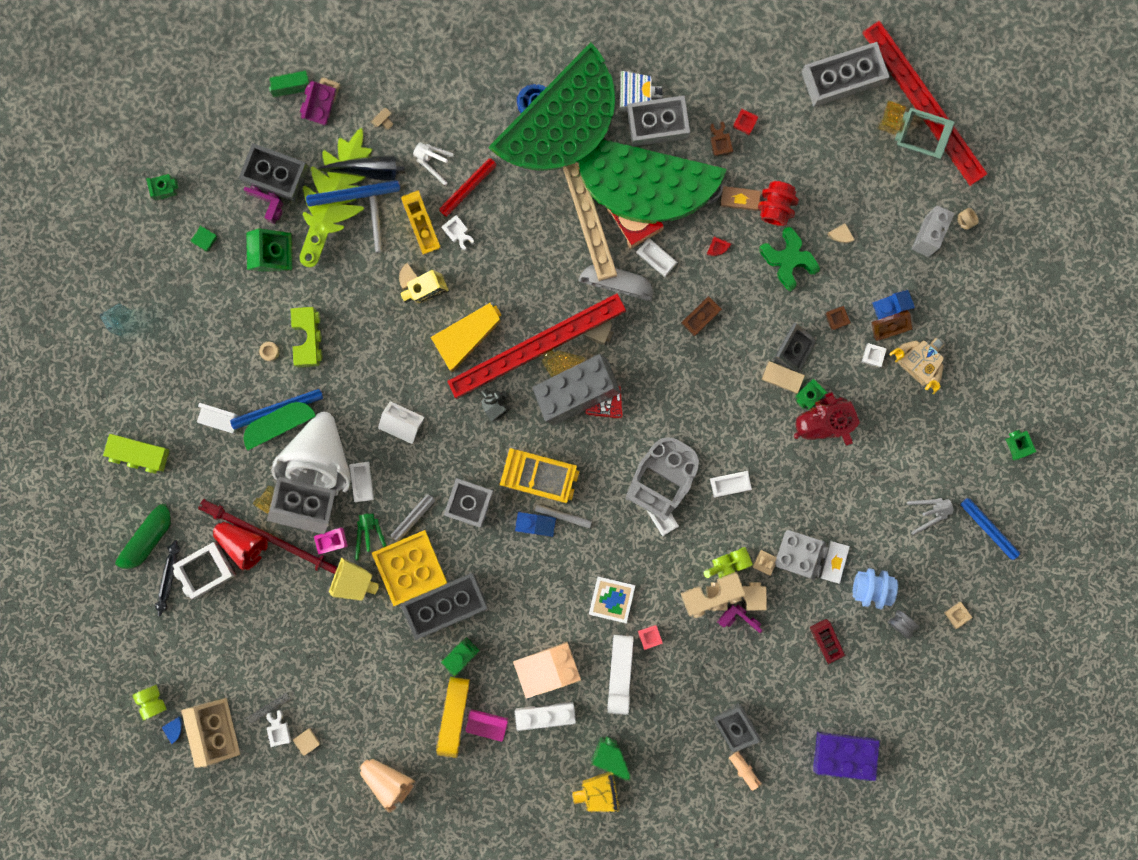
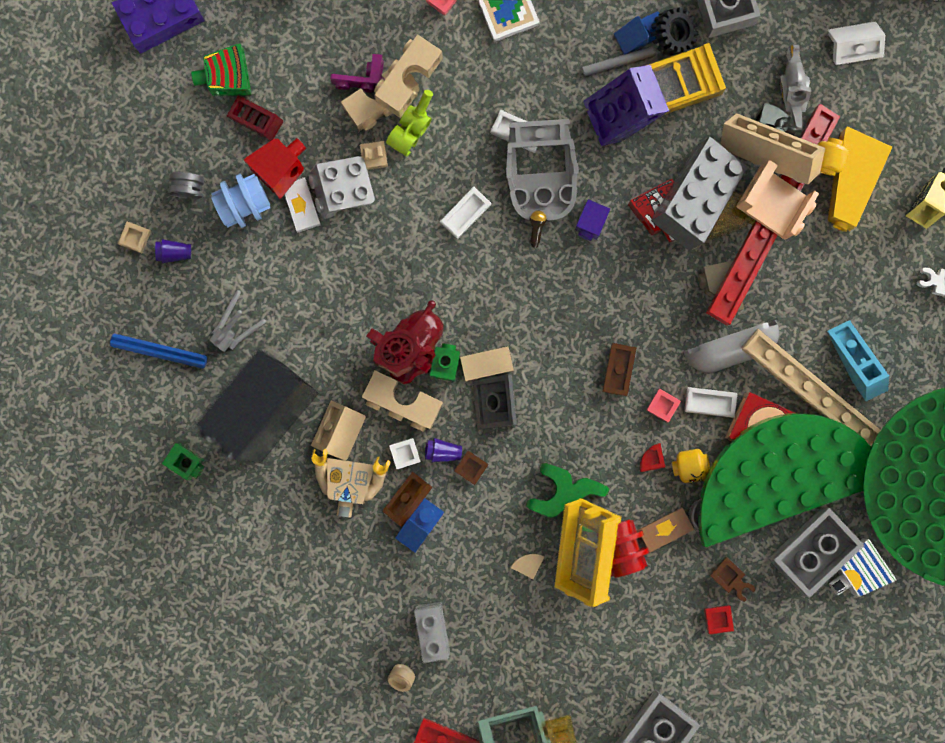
camera: 145 degrees right, 0 degrees up
(463, 419) = (795, 86): none -> light grey animal
(475, 357) = (834, 156): none -> yellow head
(510, 386) = (762, 143): none -> tan brick
(523, 515) = (684, 25): none -> black tyre
(532, 350) = (776, 202): none -> light nougat panel
(546, 220) = (859, 361): none -> medium azure slope
(585, 477) = (626, 105): none -> dark purple piece
(653, 422) = (592, 220): none -> dark purple brick
(689, 275) = (663, 405): none -> coral plate
(689, 445) = (537, 221): none -> dark brown piece
(697, 225) = (691, 466): none -> yellow head
(804, 214) = (586, 552): none -> yellow door
(828, 684) = (225, 72): none -> green torso
(834, 597) = (277, 164): none -> red torso
(848, 374) = (381, 394): none -> tan arch
(849, 341) = (442, 451): none -> dark purple cone
(907, 398) = (338, 430): none -> tan panel
(940, 588) = (171, 251): none -> dark purple cone
(958, 436) = (256, 408): none -> black brick

